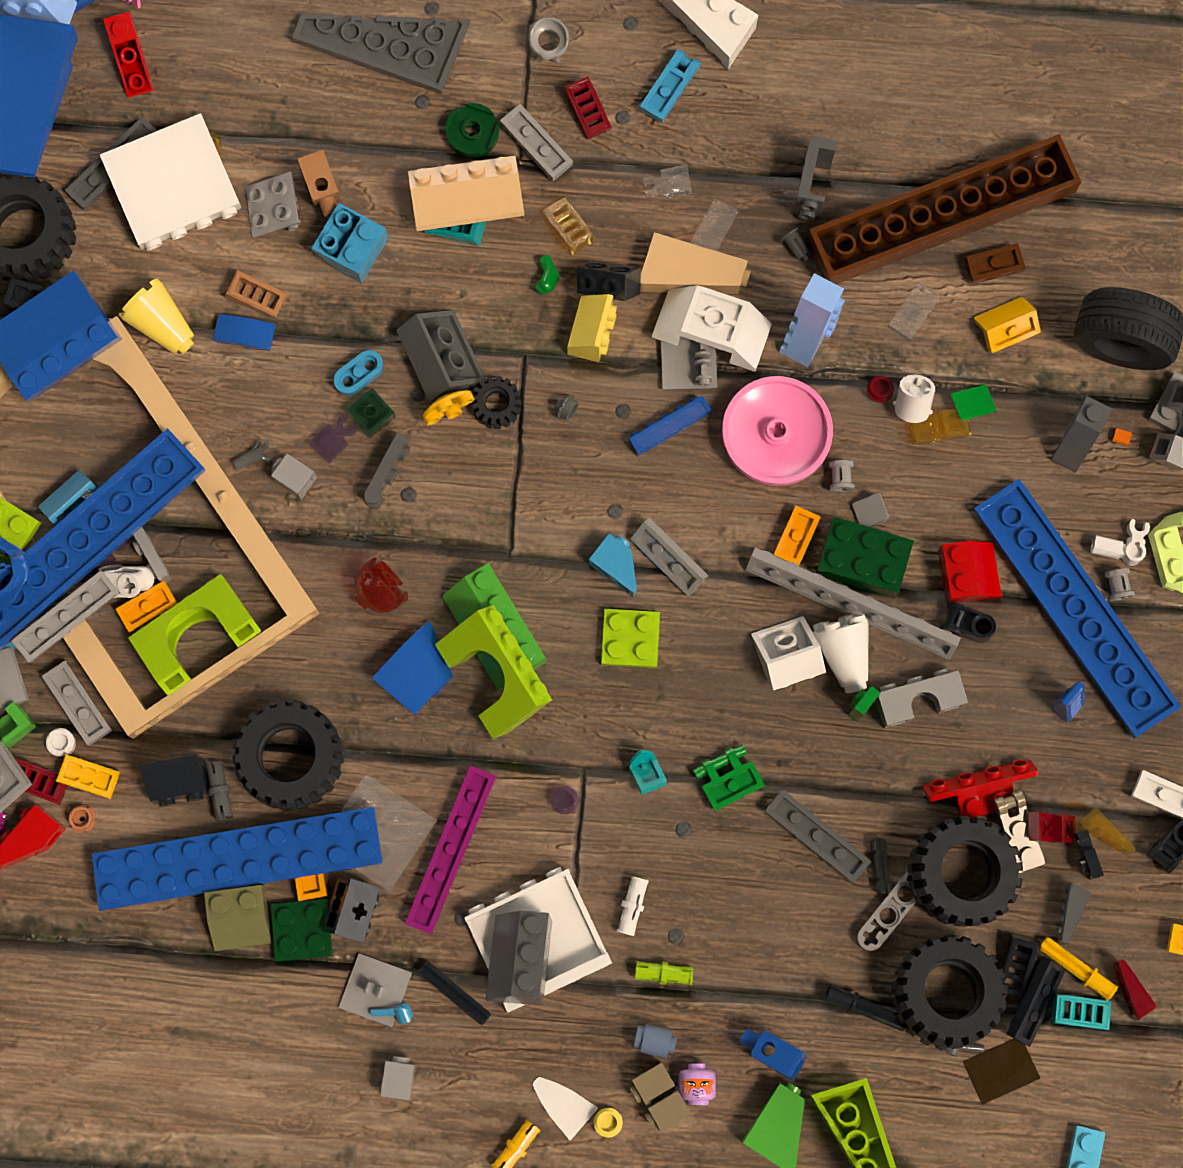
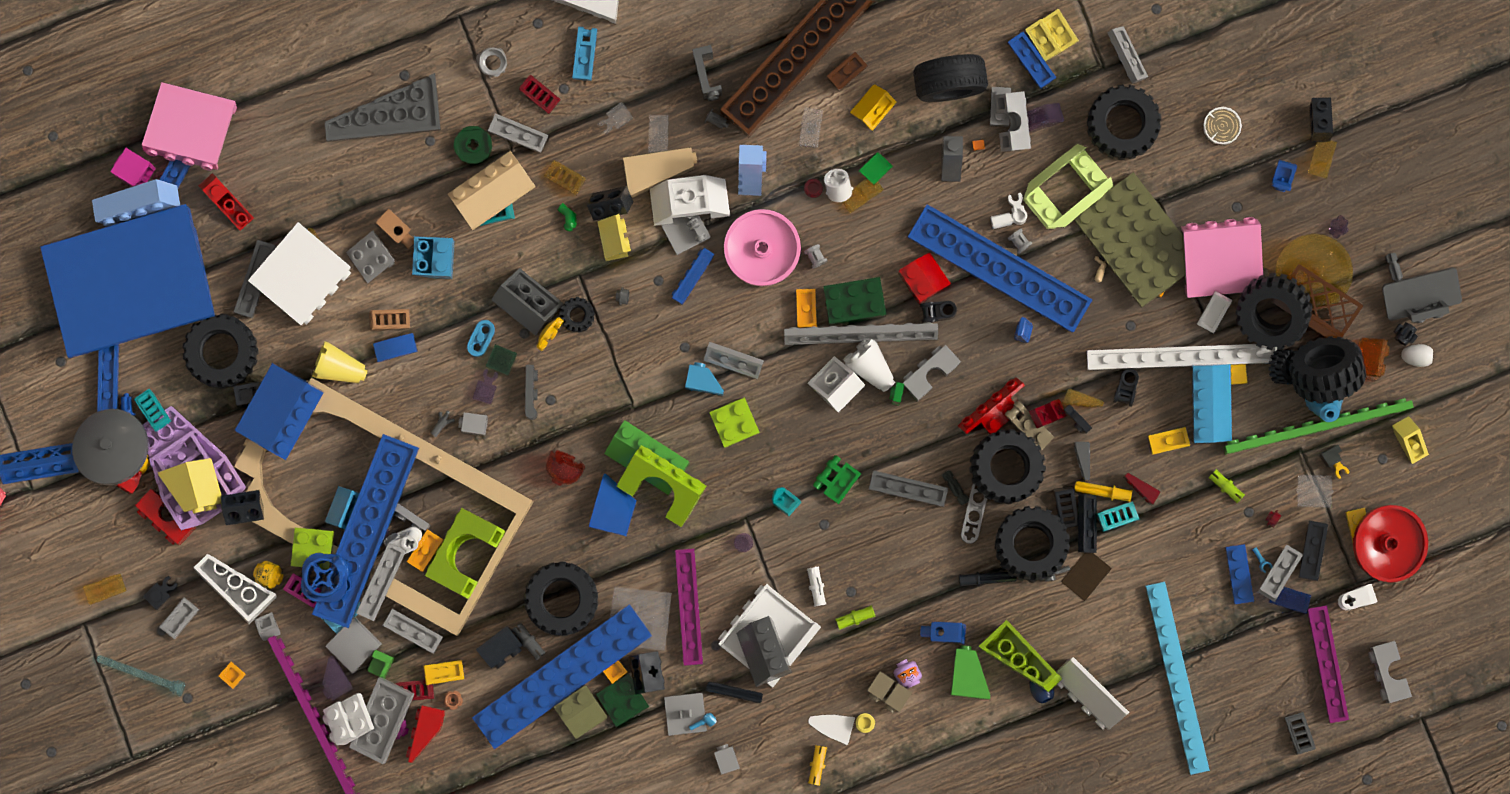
camera: 25 degrees left, 5 degrees up
(60, 742) = (415, 660): white tile -> none
(655, 1041) = (869, 660): sand blue brick -> none
(871, 511) = (844, 270): light grey slope -> none

